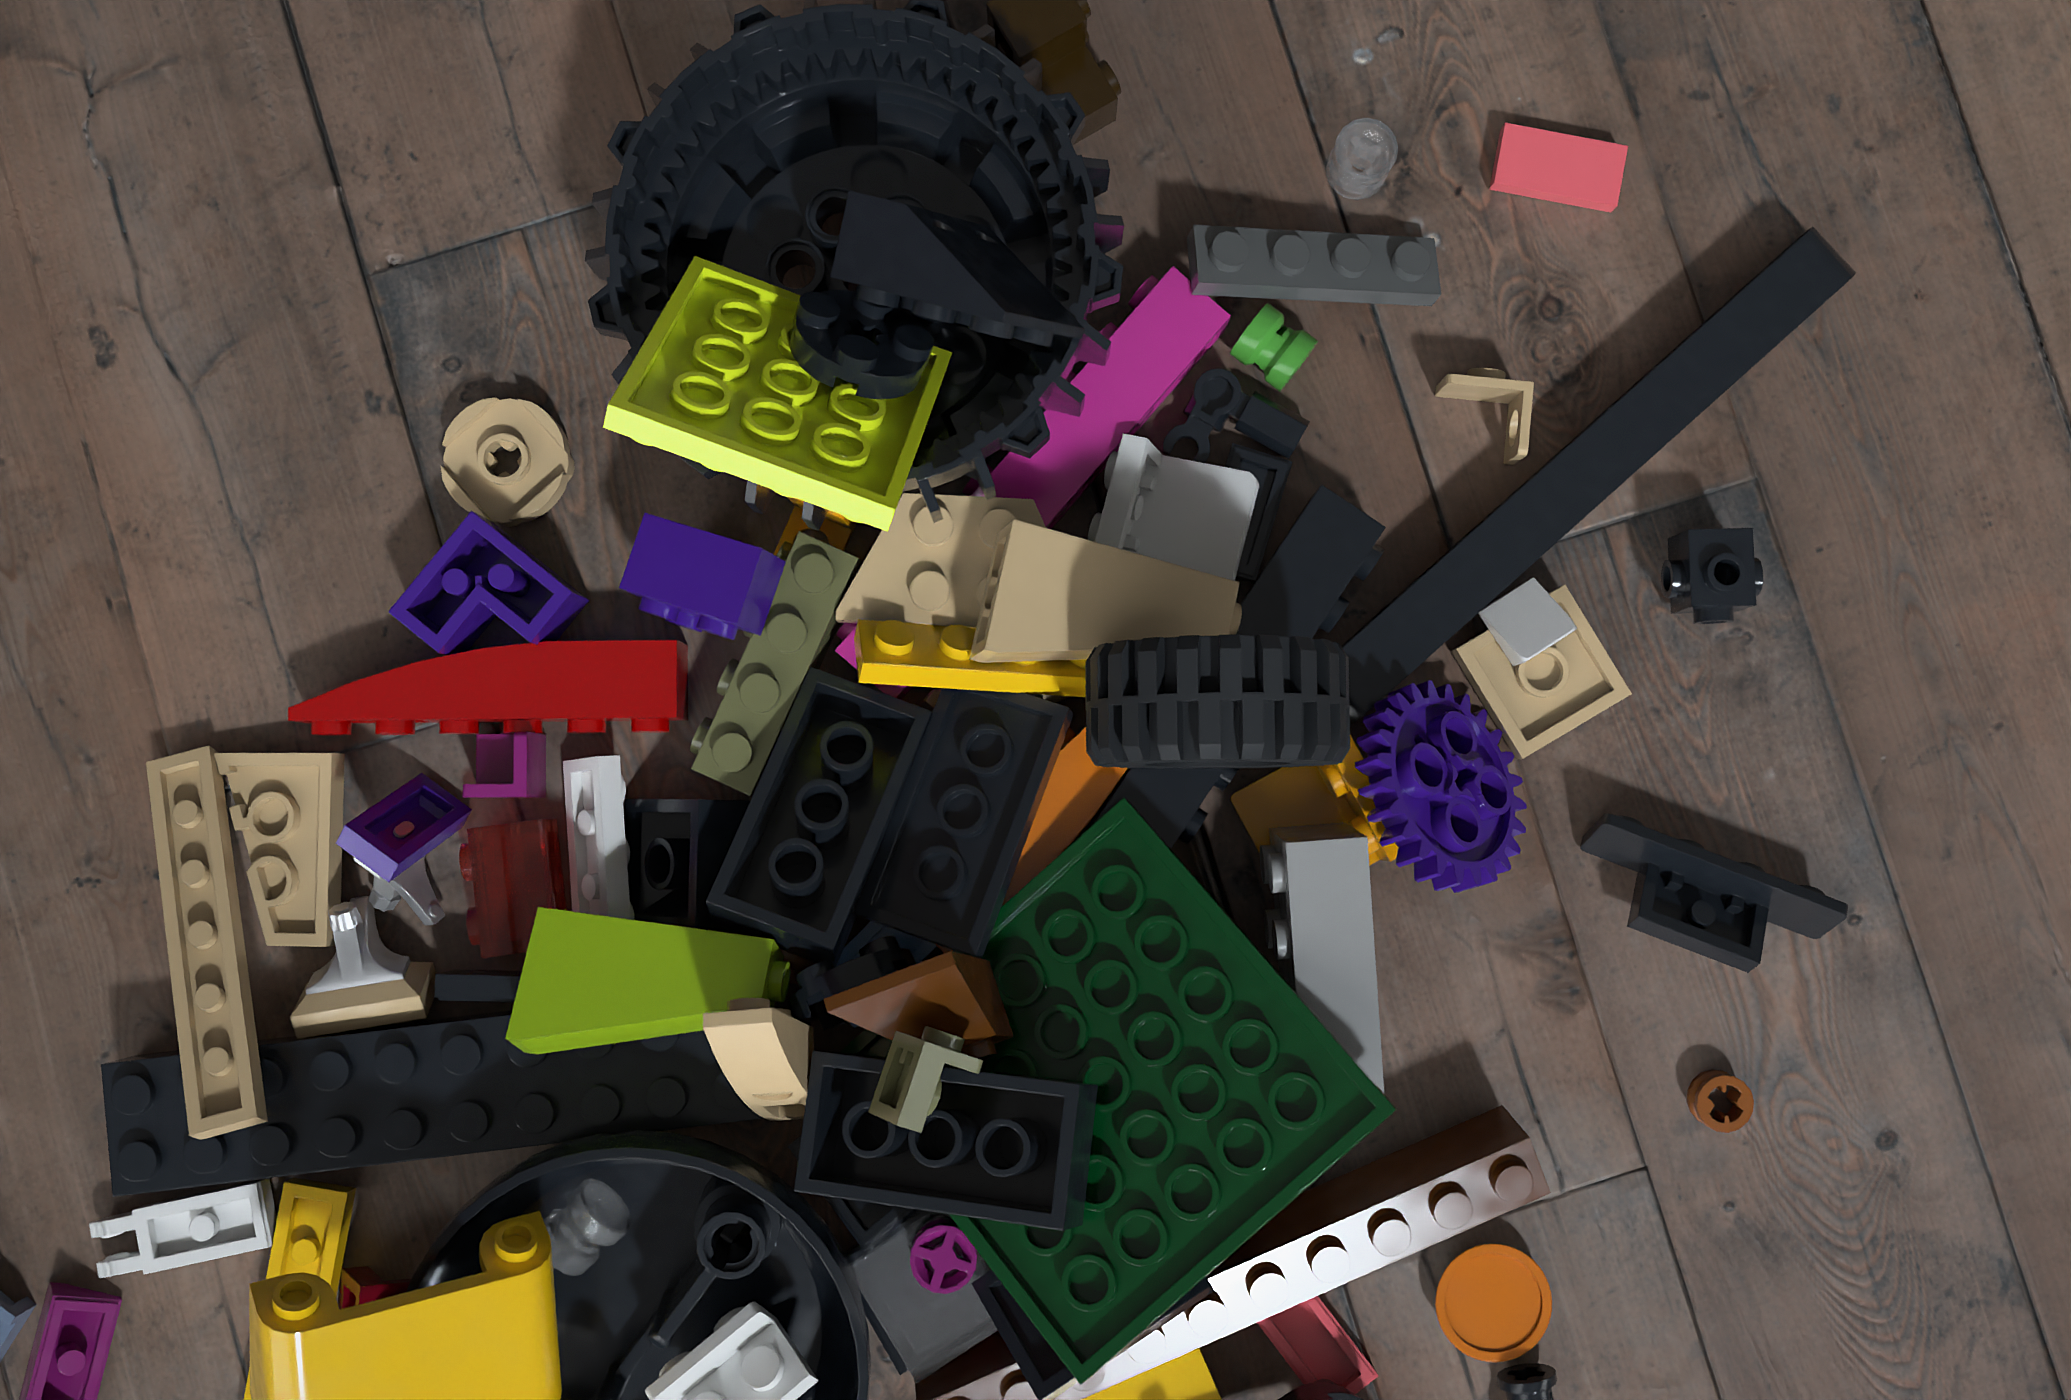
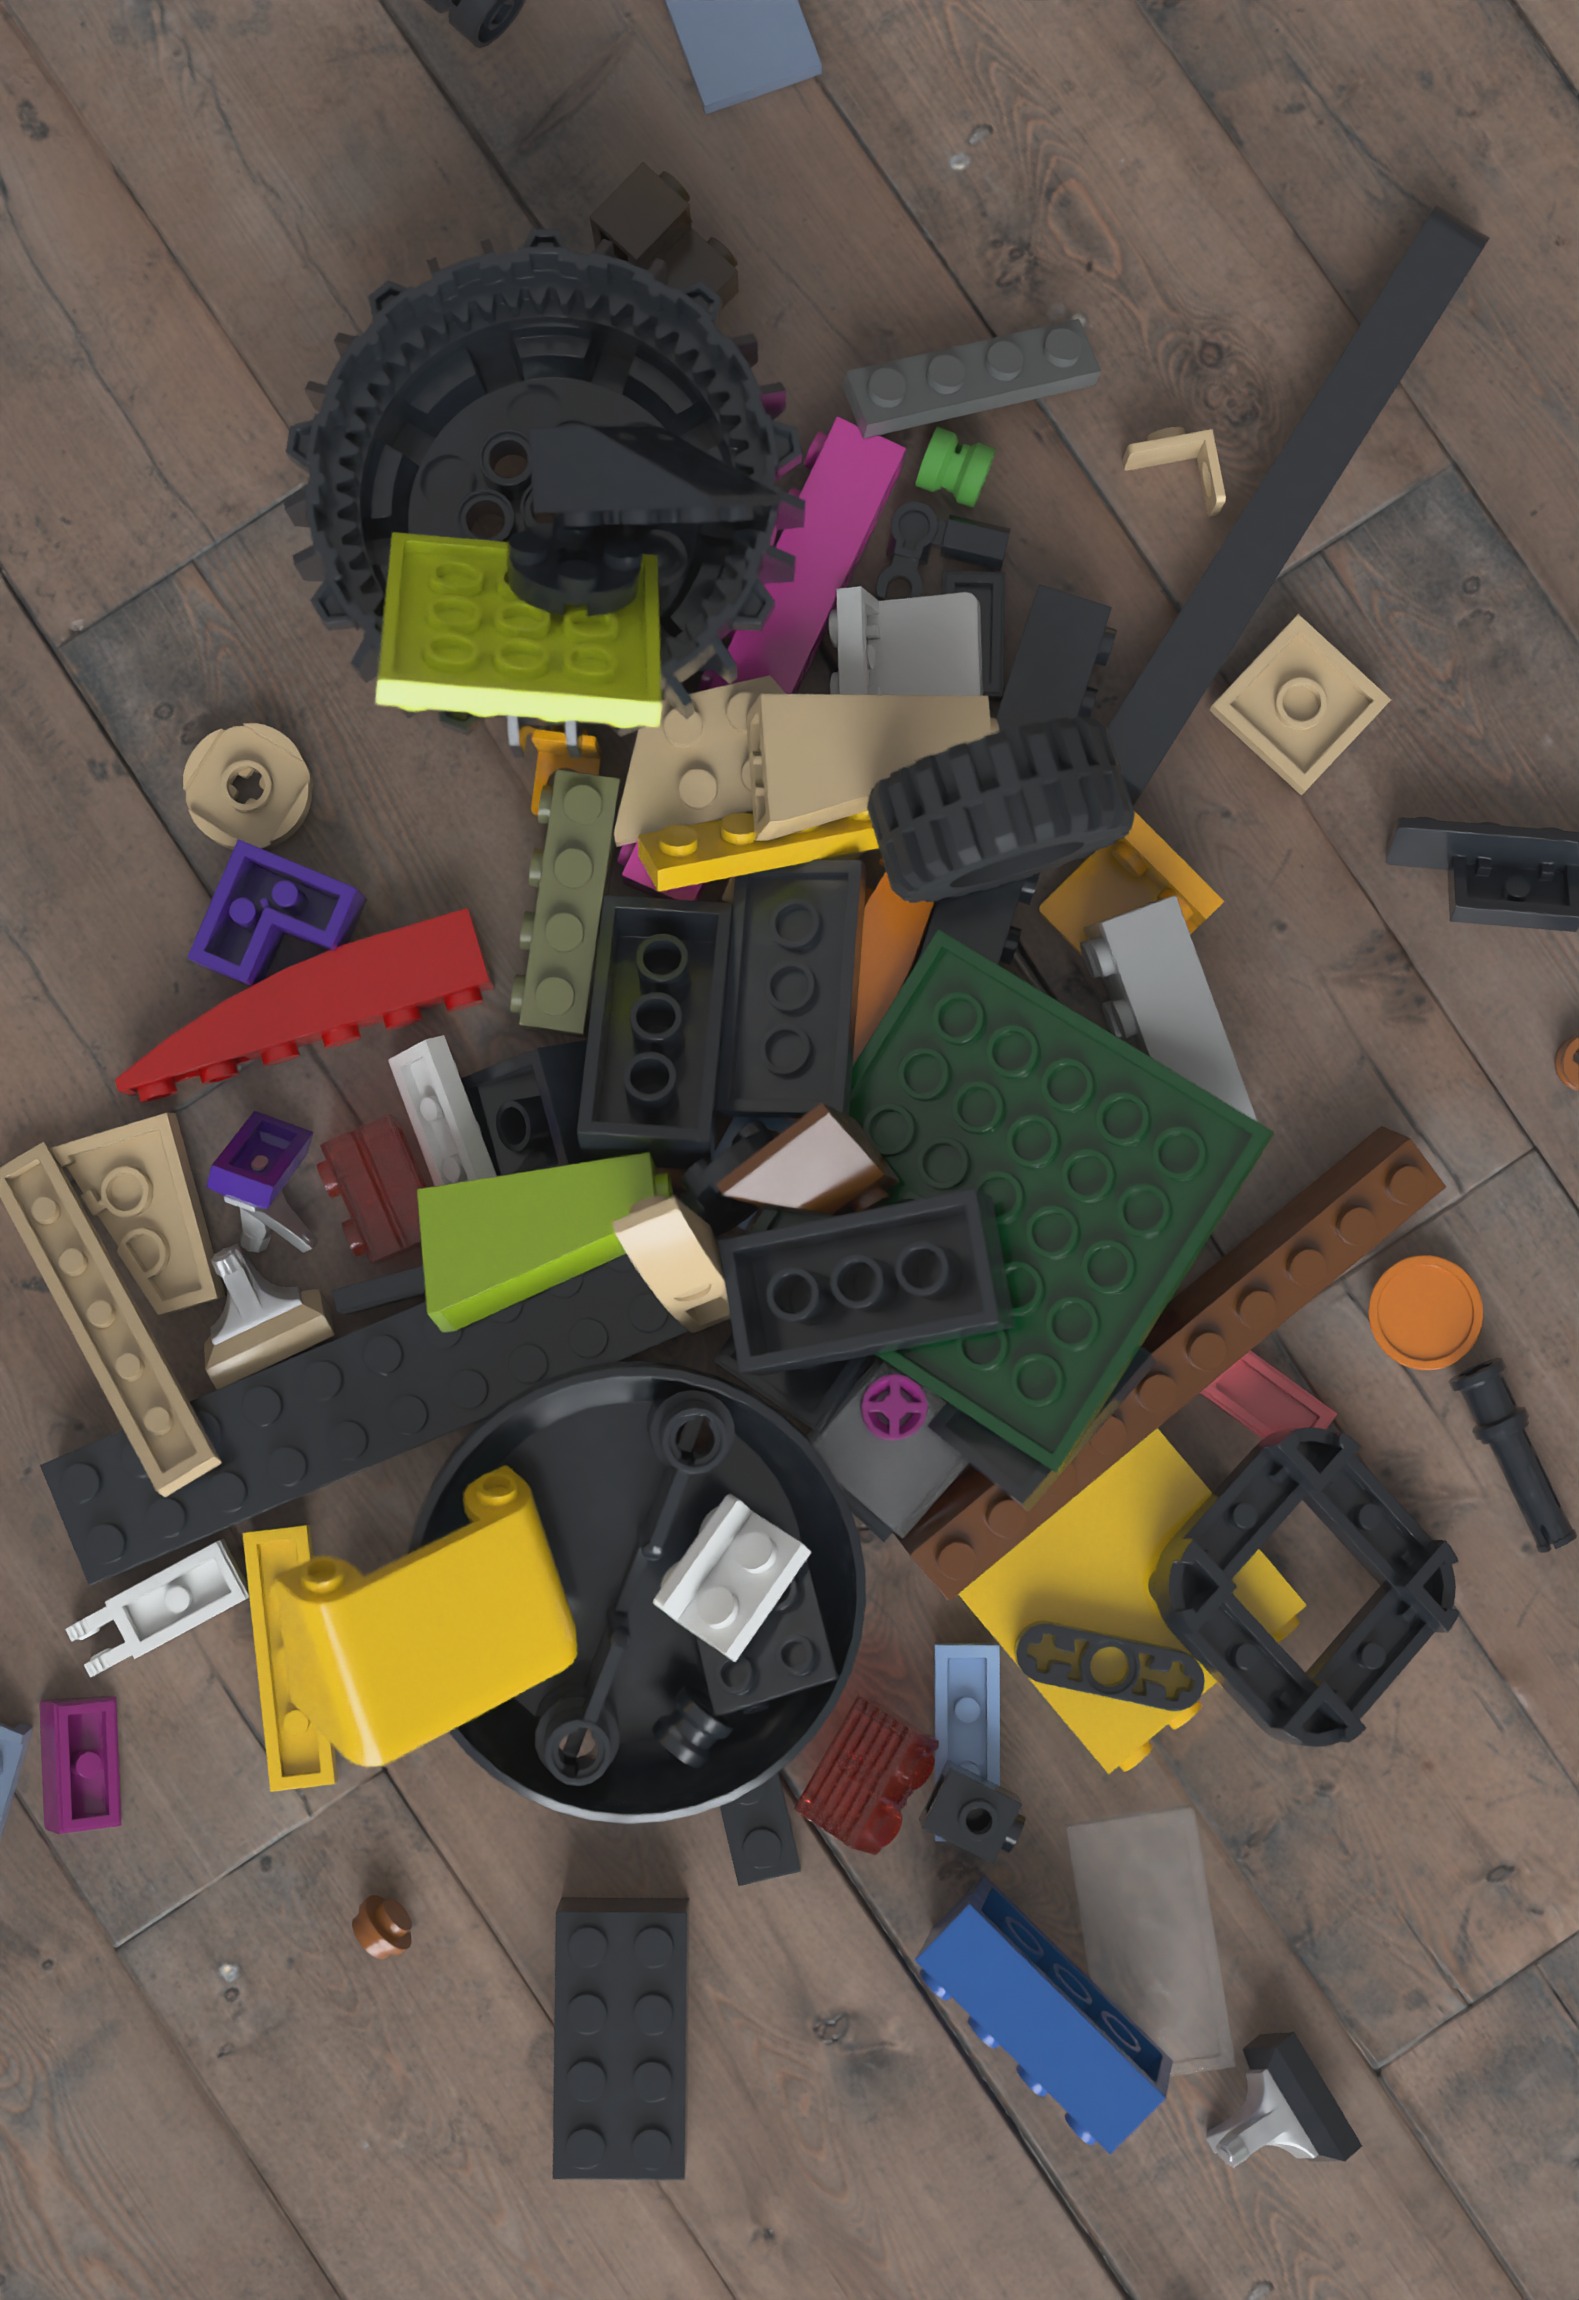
camera: 20 degrees left, 0 degrees up
(509, 766) = (338, 1079): magenta panel -> none
(590, 1220) = (551, 1472): clear wheel -> none
(701, 578) = (478, 839): dark purple brick -> none
(912, 1073) = (819, 1225): olive bracket -> none
(1368, 147) = (987, 249): clear wheel -> none
(1441, 787) = (1234, 836): dark purple gear -> none
(1526, 622) = (1270, 658): white slope -> none
(1558, 167) = (1178, 216): coral tile -> none
(1711, 573) = (1434, 563): black brick -> none

